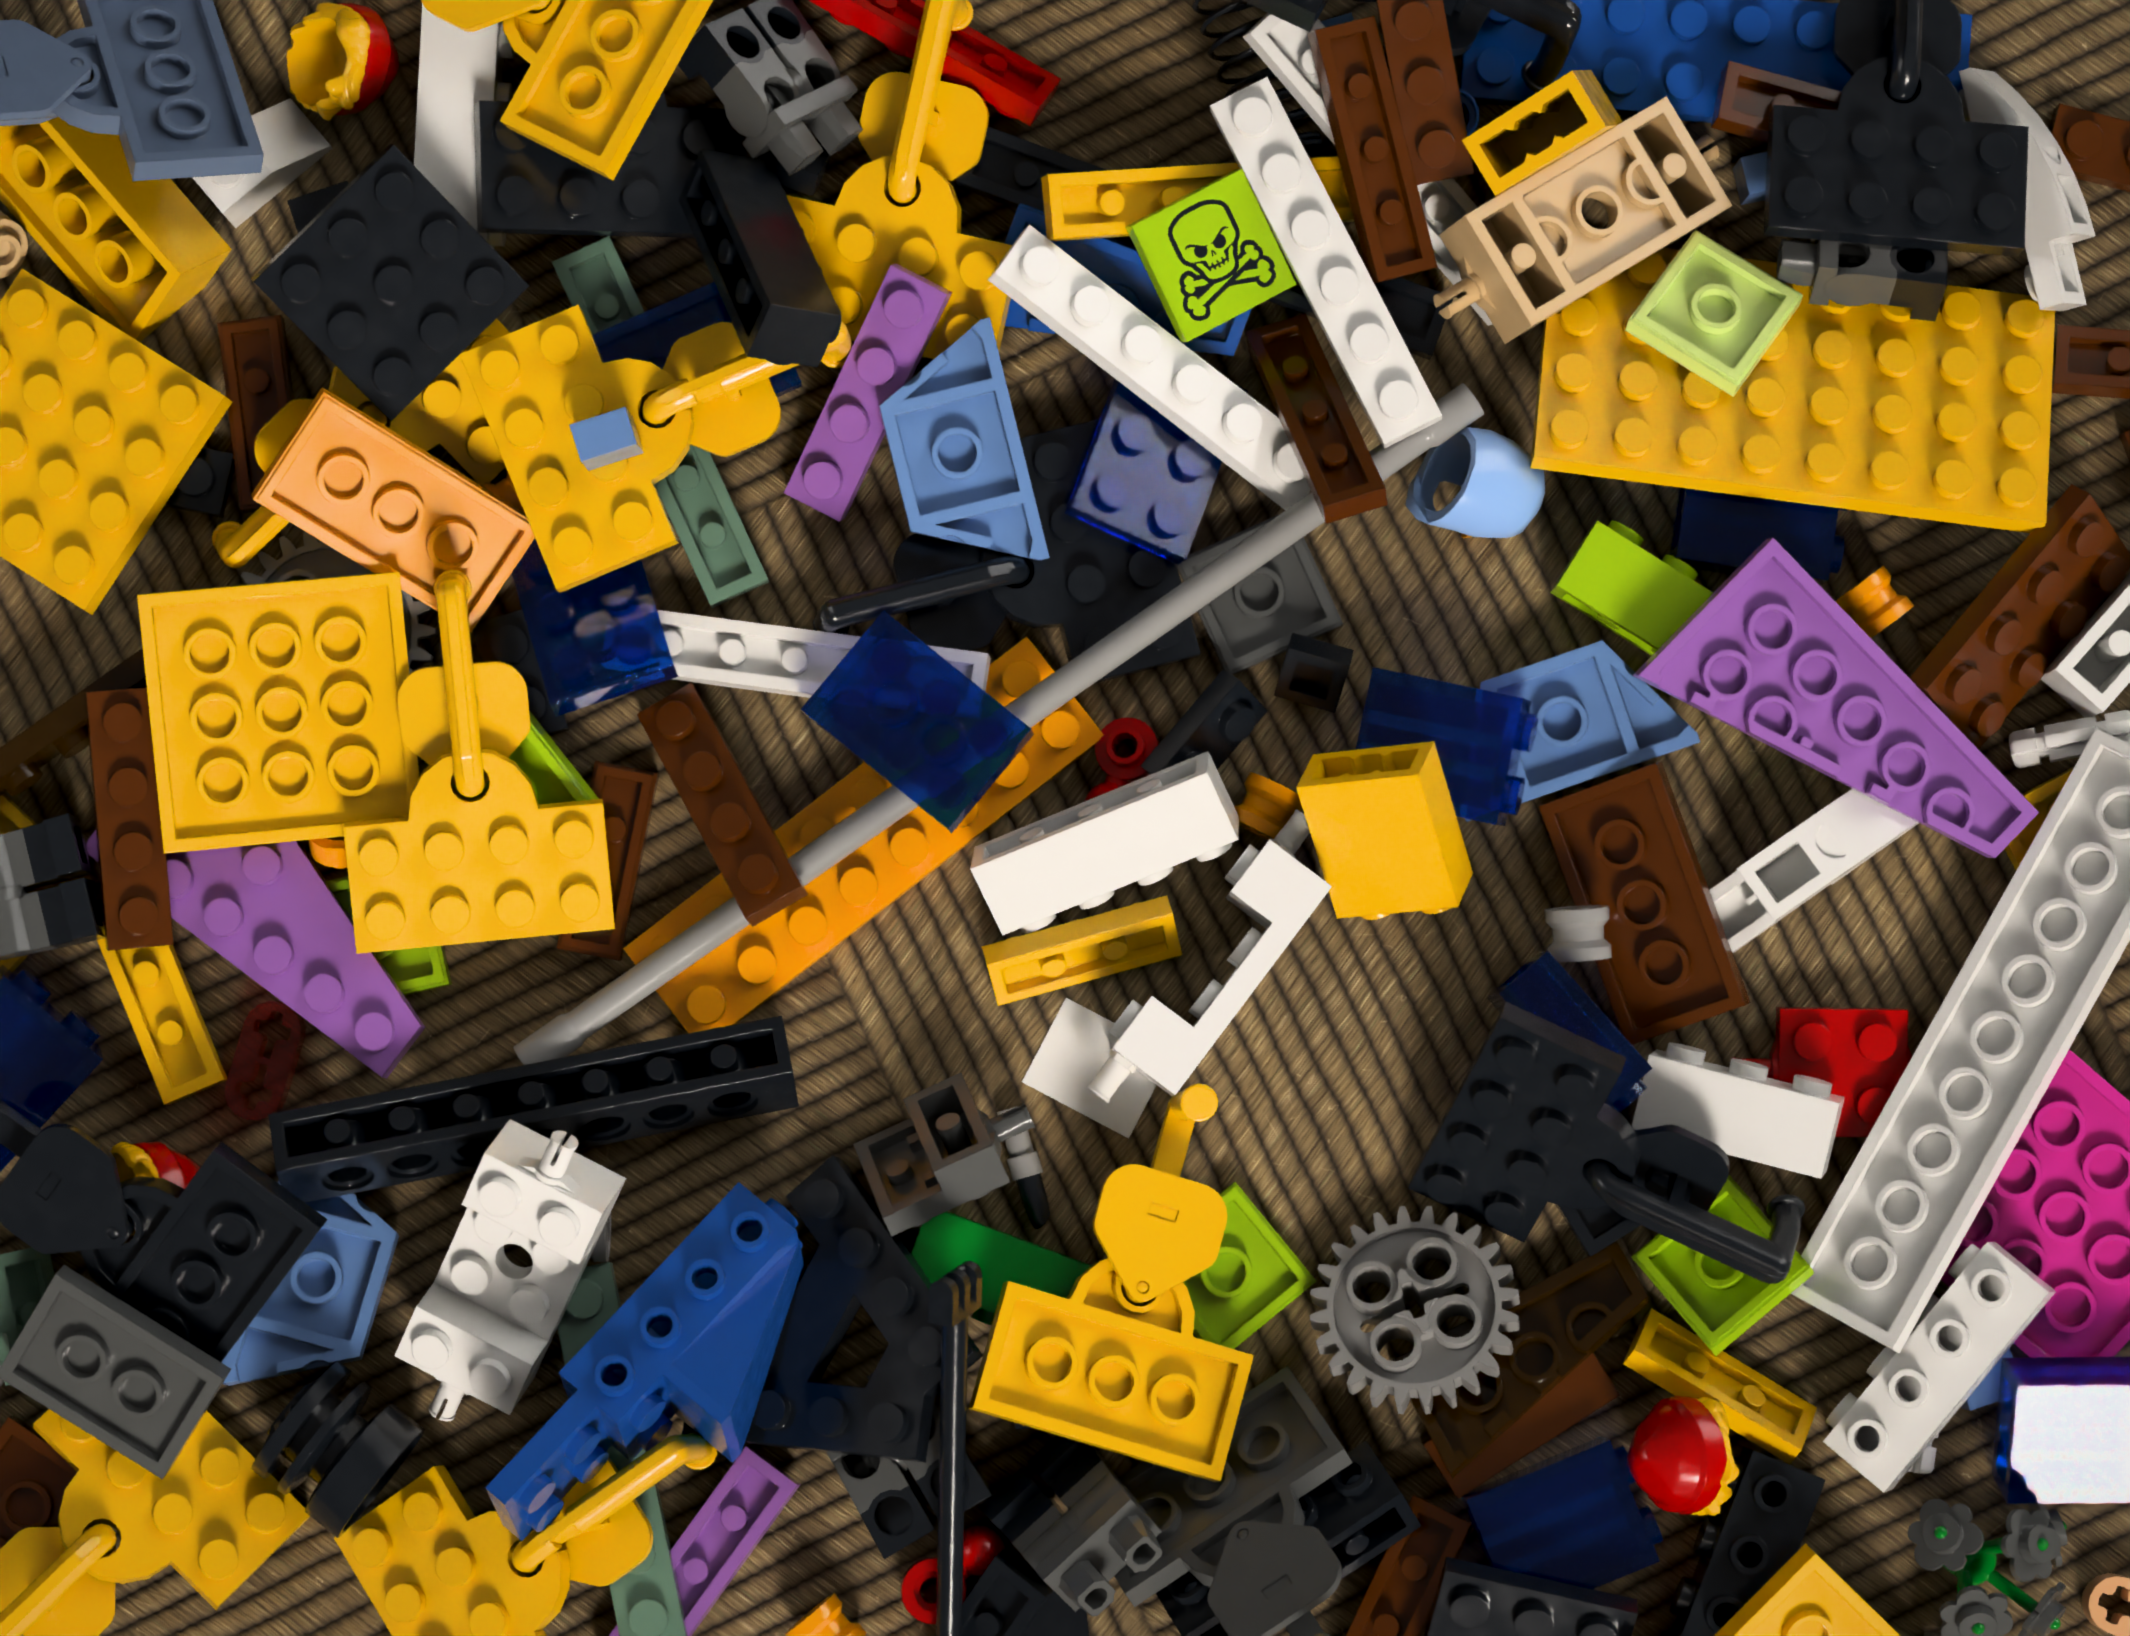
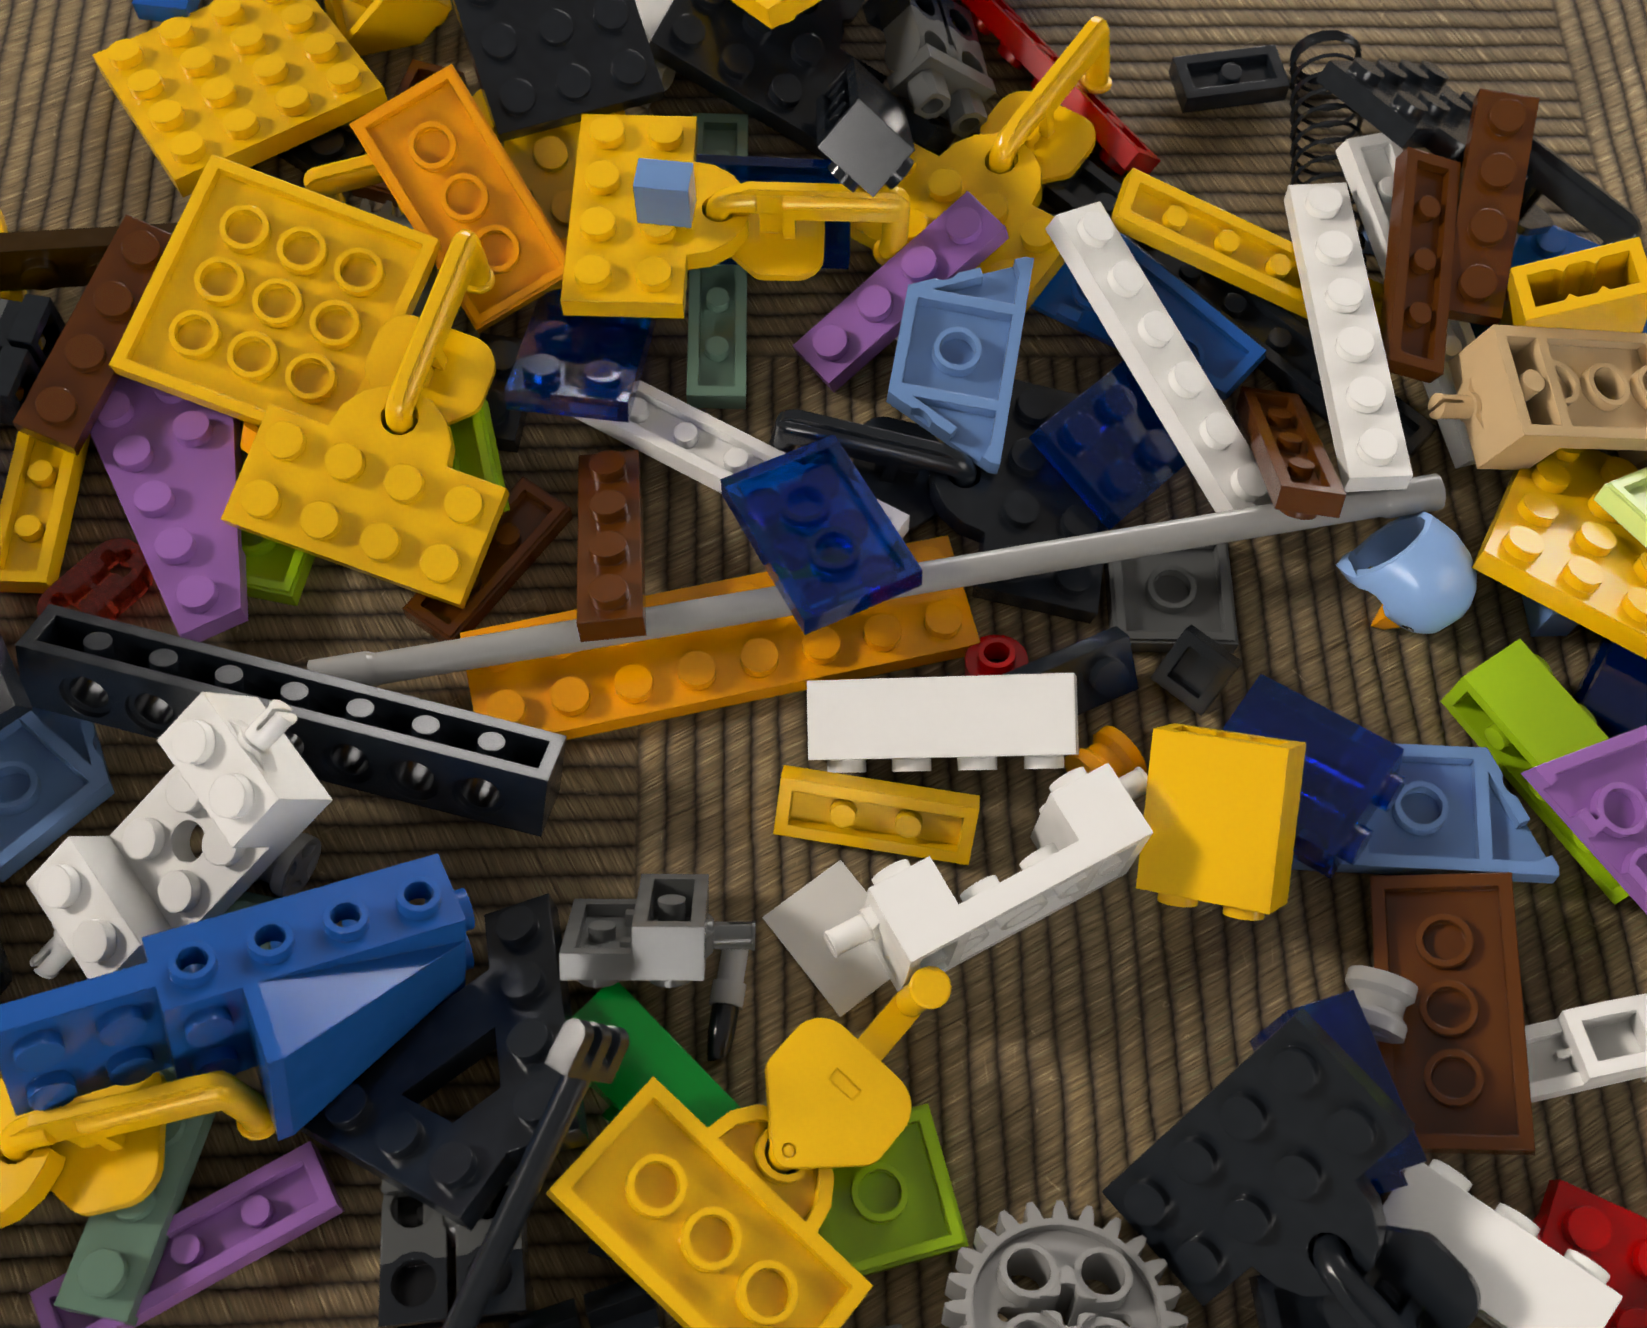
camera: 25 degrees right, 20 degrees down
(1211, 255) = (1244, 292): lime tile -> none

